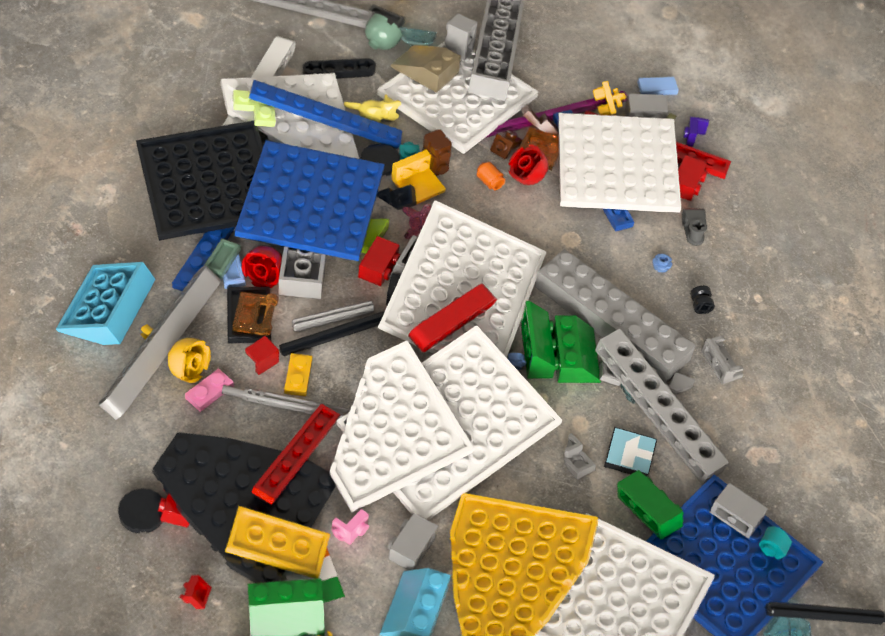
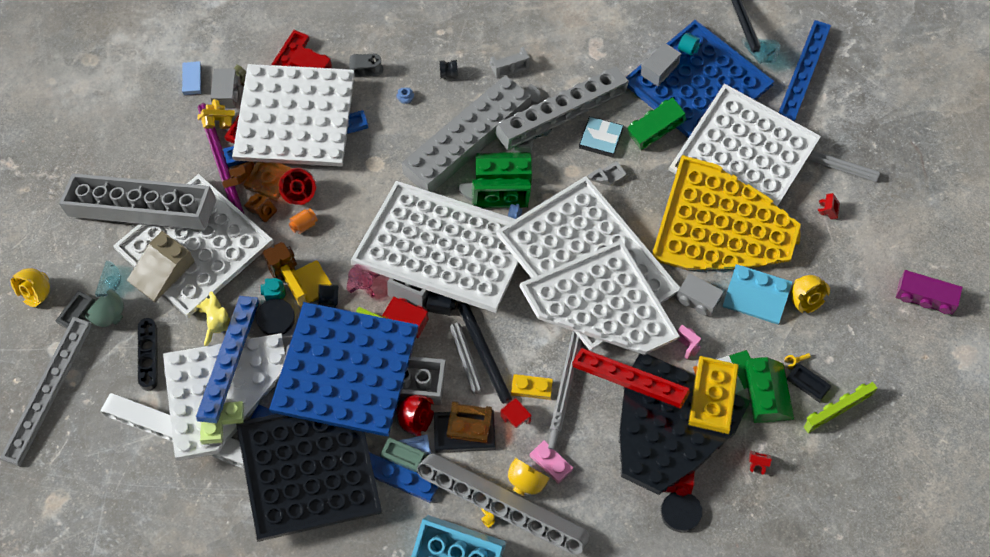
camera: 80 degrees left, 10 degrees up
(452, 317) = (486, 250): red beam -> none
(461, 35) = (131, 231): light grey brick -> none
(695, 127) = (253, 55): dark purple bracket -> none

